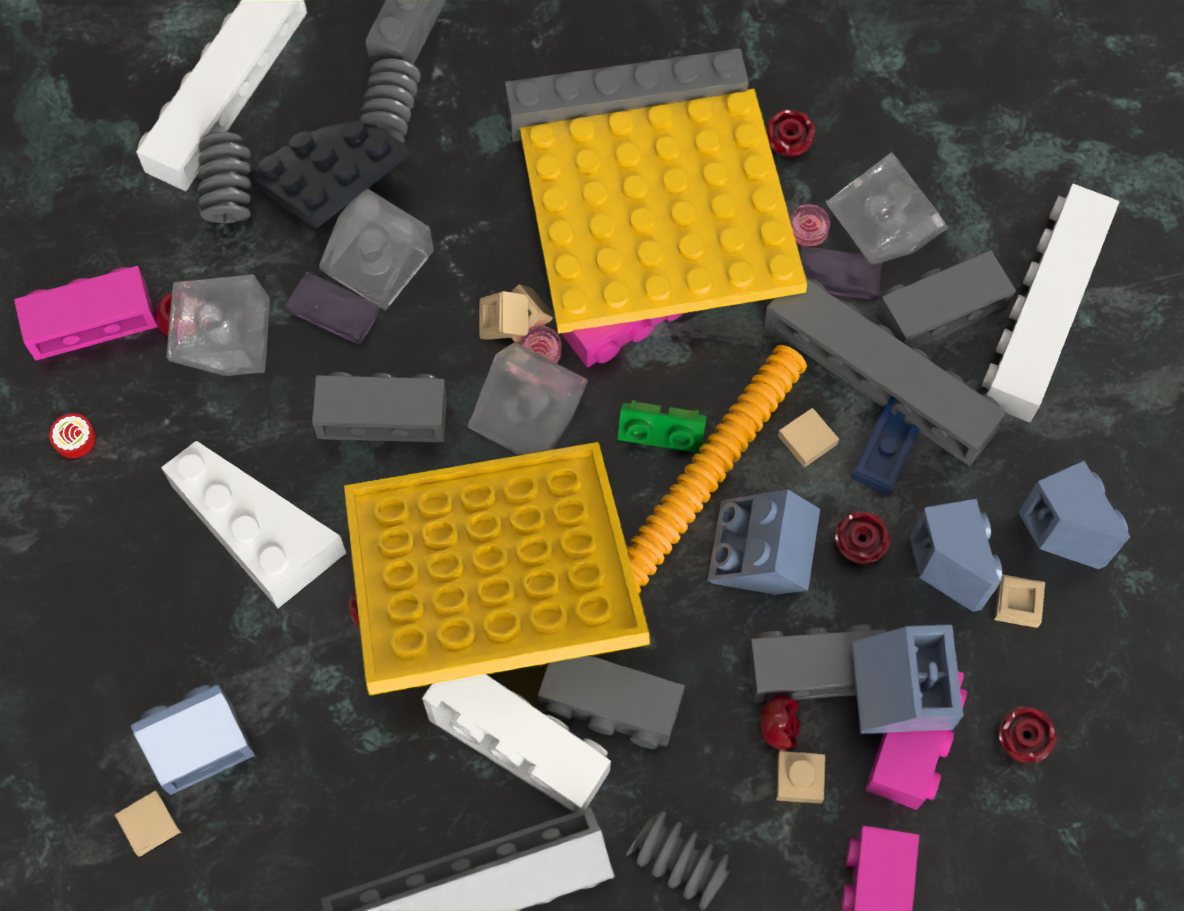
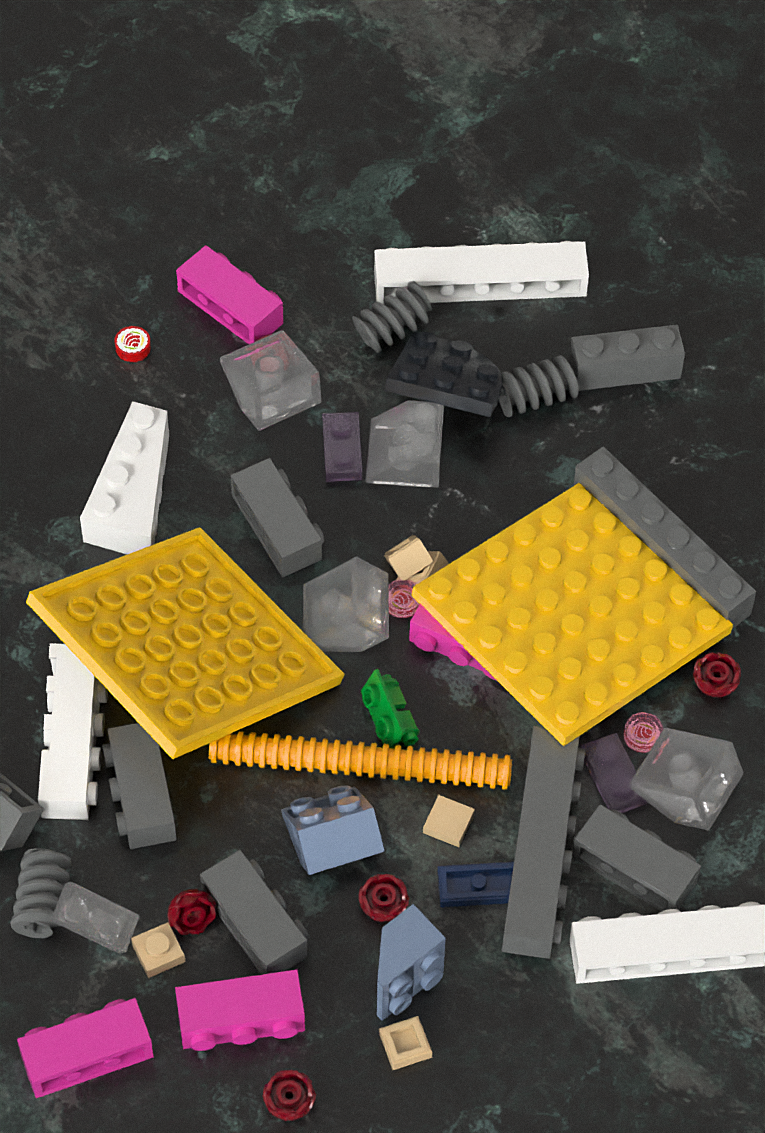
camera: 60 degrees right, 10 degrees down
(744, 820) = (95, 917): none -> clear plate
(907, 680) = (265, 966): sand blue slope -> none
(1074, 518) = (495, 1034): sand blue slope -> none

